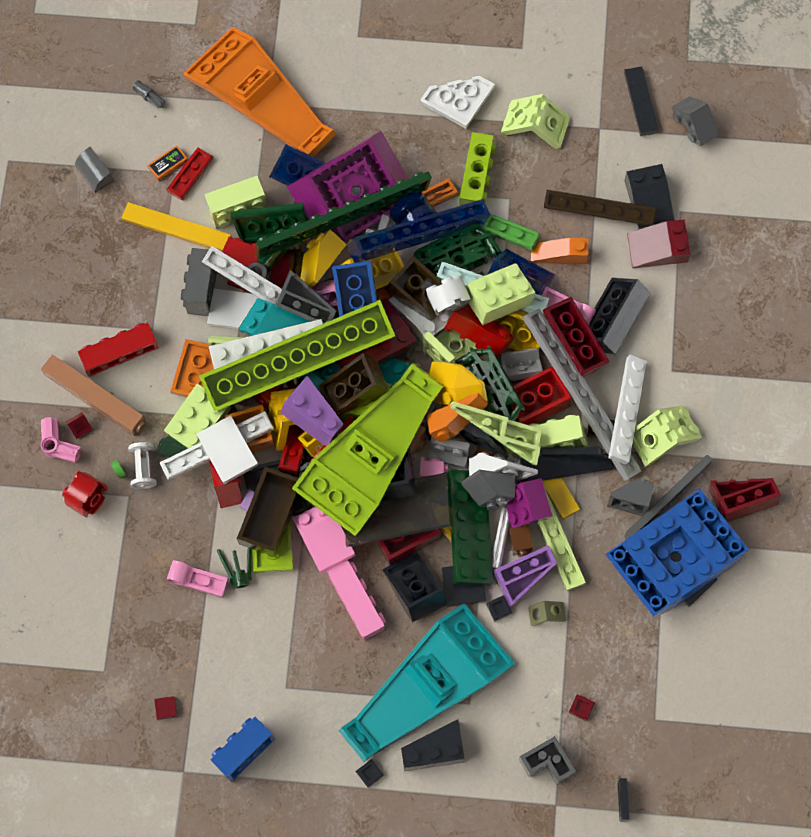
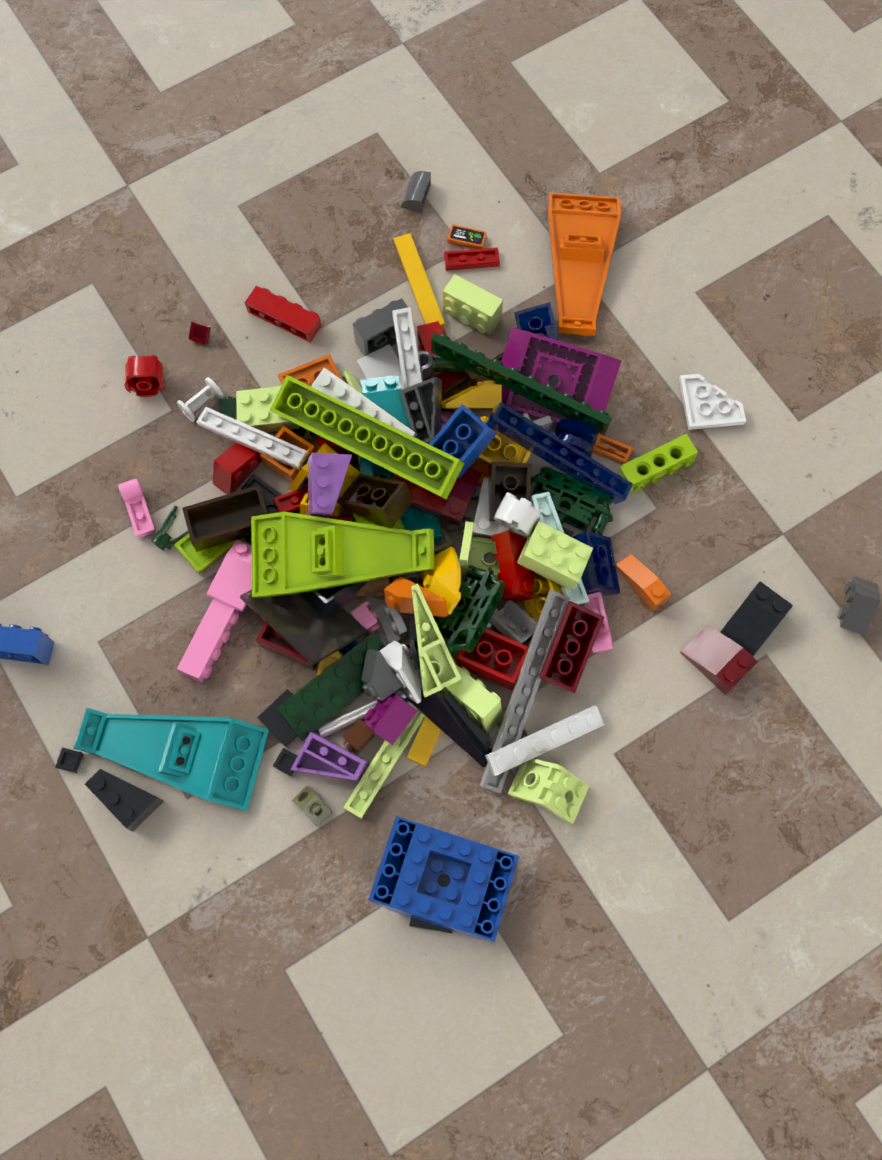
camera: 50 degrees right, 0 degrees up
(50, 436) = (175, 320): bright pink piece -> none
(93, 395) = (231, 324): nougat brick -> none
(119, 469) = (186, 385): bright green tile -> none
(148, 94) = (511, 183): dark grey axle -> none
(165, 708) = (16, 563): dark red tile -> none
(227, 449) = (251, 446): white tile -> none
(265, 221) = (469, 332): dark green tile -> none
(415, 587) = (253, 679): black slope -> none
(511, 232) = (627, 530): bright green tile -> none
(535, 115) = (744, 470): yellowish green bracket -> none
(551, 756) = (182, 902): dark grey brick -> none
(581, 707) = (249, 896): dark red tile -> none
(600, 207) = (710, 585): dark brown tile -> none
(617, 312) = (625, 668): black slope -> none
(623, 800) = (187, 994): black tile -> none
(632, 497) = (467, 802): dark grey slope -> none
(641, 101) = (837, 548): black tile -> none
(676, 490) = (496, 835): dark grey tile -> none
(742, 498) = (544, 902): dark red wedge -> none

